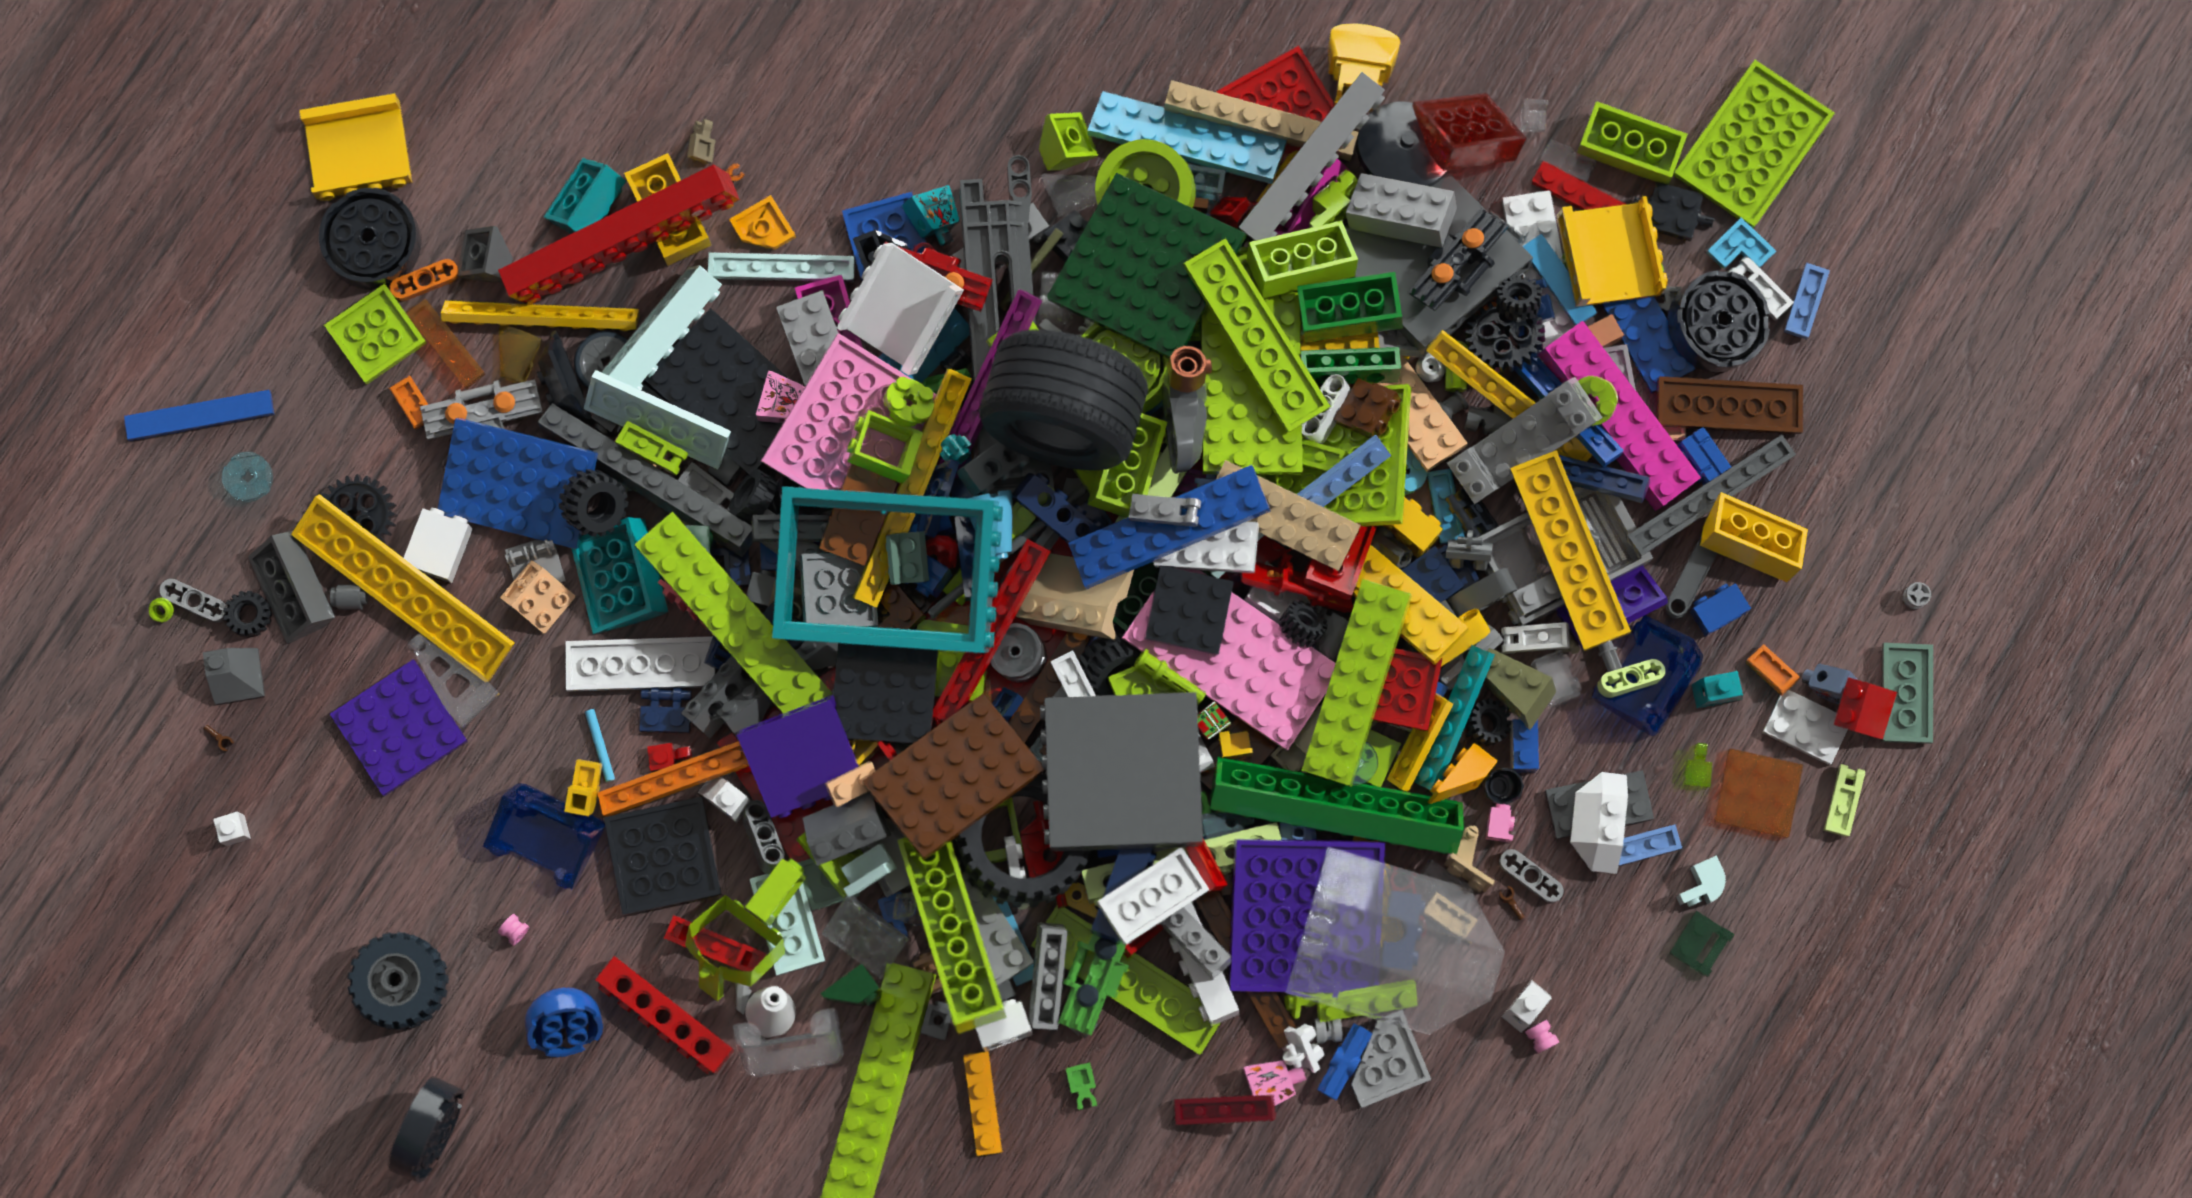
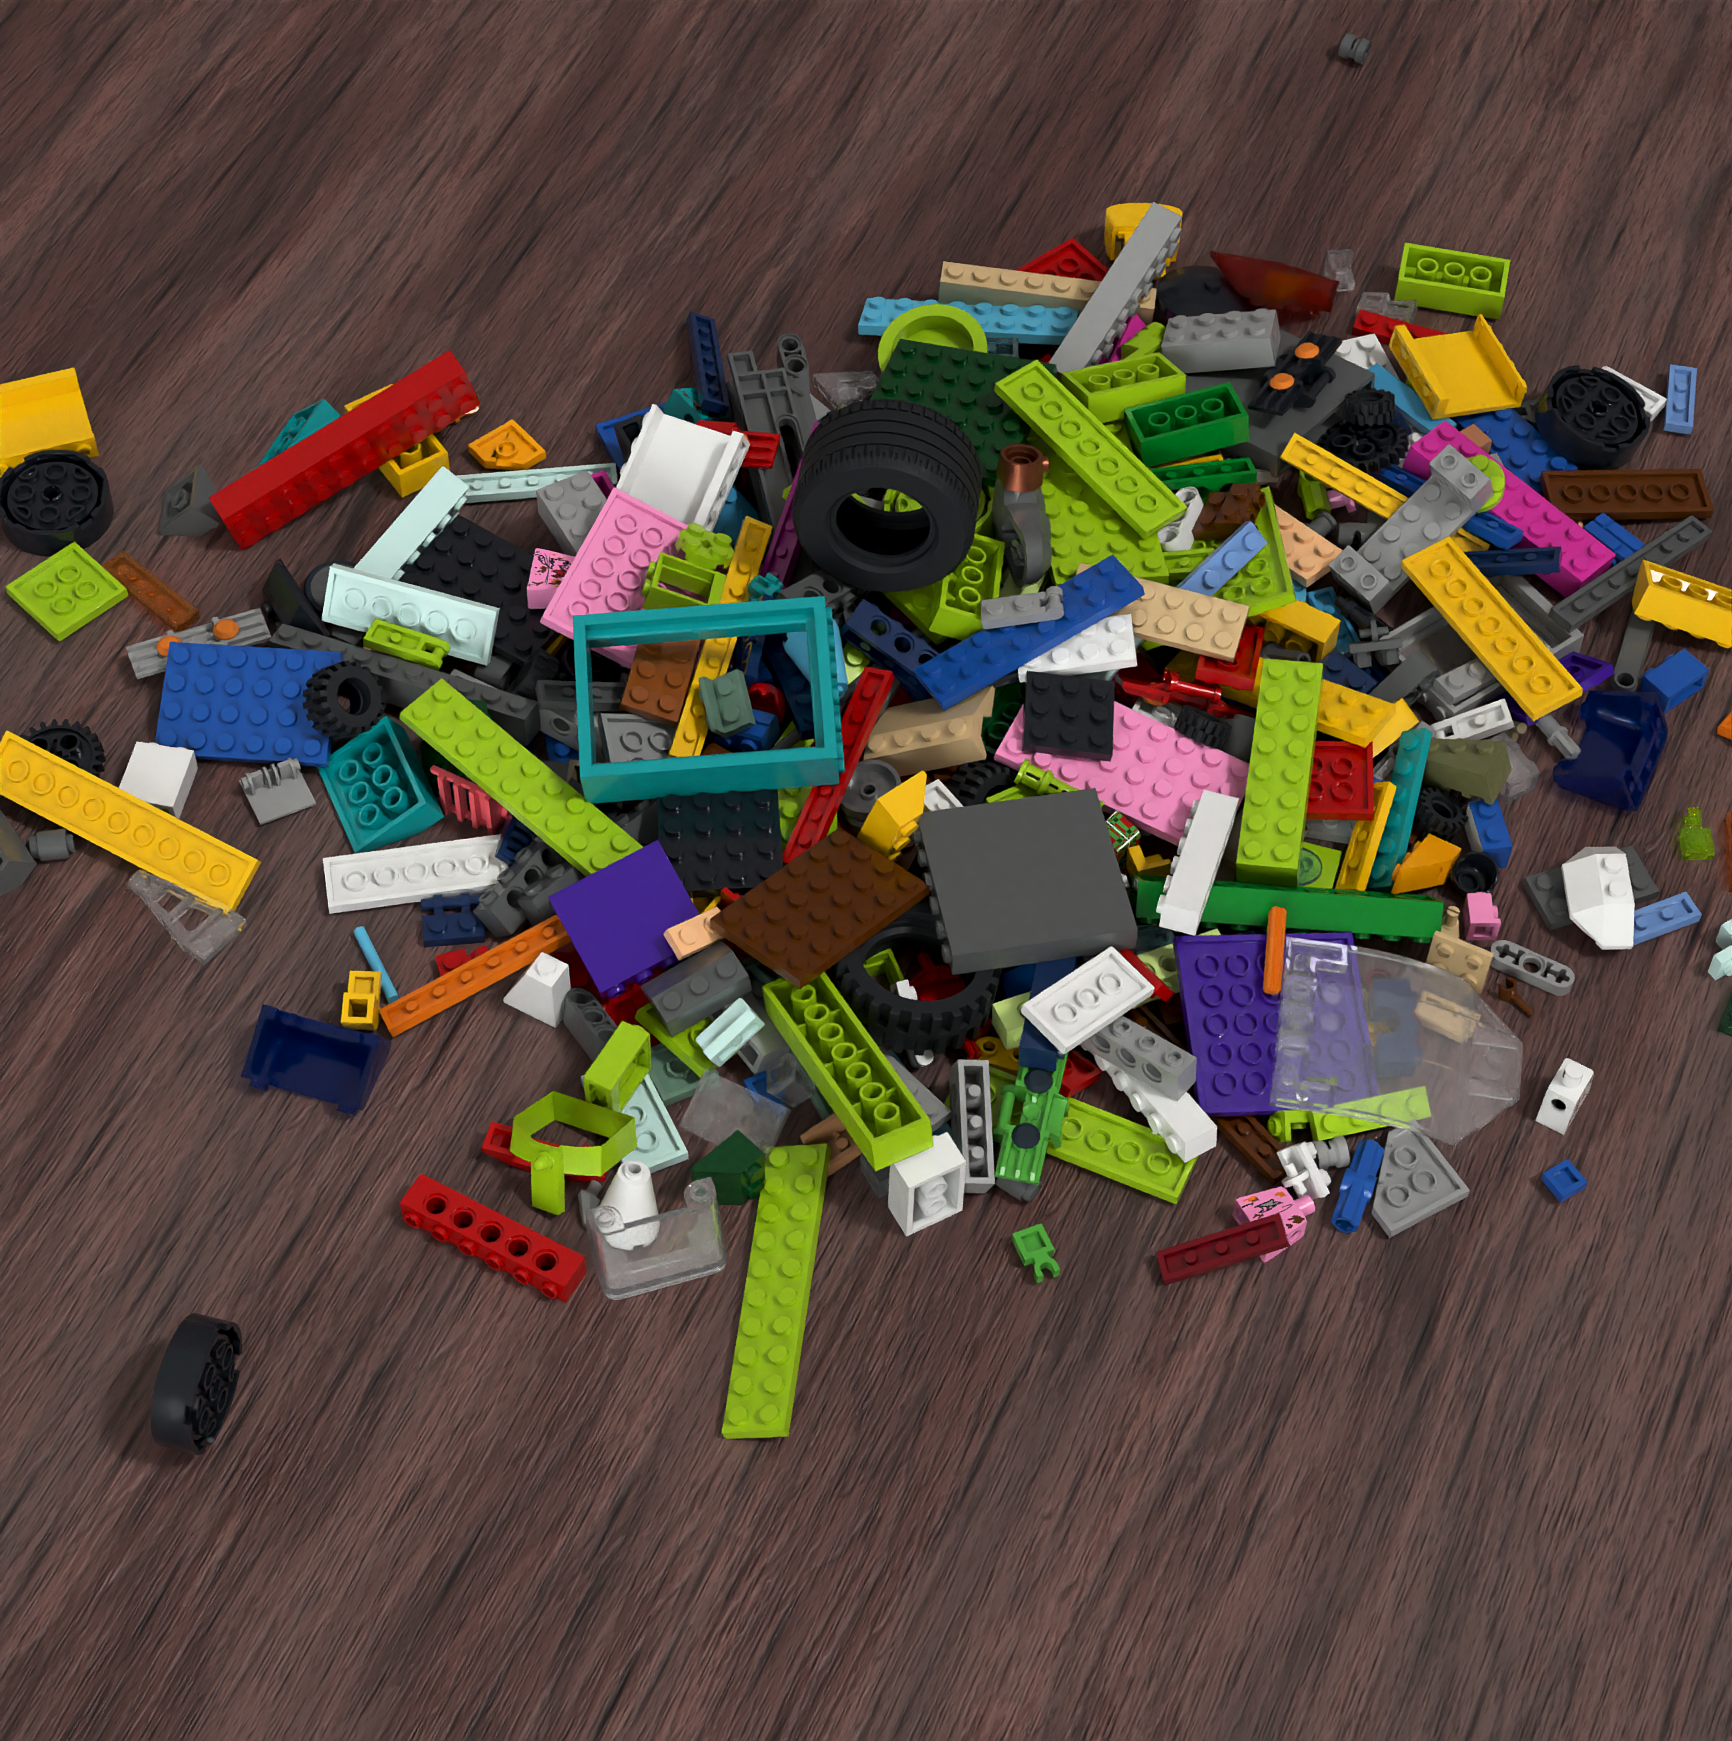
camera: 10 degrees left, 25 degrees down
(375, 976) = (144, 1236): black wheel -> none
(398, 727) = (123, 974): dark purple plate -> none
(410, 400) = (112, 649): orange plate -> none
(434, 284) = (127, 527): orange beam -> none
(513, 929) = (288, 1167): bright pink wheel -> none
(516, 353) = (235, 589): clear yellow slope -> none
(538, 596) = (286, 817): light nougat bracket -> none
(541, 315) = (247, 555): yellow plate -> none
(562, 1009) = (363, 1241): blue cylinder -> none
(662, 856) = (468, 1067): black plate -> none
(937, 1031) = (841, 1203): dark grey brick -> none
(947, 160) = (707, 364): none -> dark blue plate
(982, 1103) = (914, 1291): light orange plate -> none
(1028, 700) = (895, 817): none -> yellow slope
(1065, 141) = (834, 343): lime slope -> none
(1267, 776) = (1198, 862): none -> white brick
(1315, 859) = (1274, 950): none -> orange axle
(1428, 374) = (1287, 498): white plate -> none
(1508, 1079) = (1564, 1180): none -> blue plate
(1542, 1037) = (1592, 1129): bright pink wheel -> none
(1624, 685) = (1593, 752): yellowish green beam -> none
(1676, 211) = (1520, 338): black plate -> none
(1718, 689) = (1695, 753): teal torso -> none
(1744, 240) = (1596, 353): medium azure plate -> none
(1753, 144) = (1580, 274): lime plate -> none

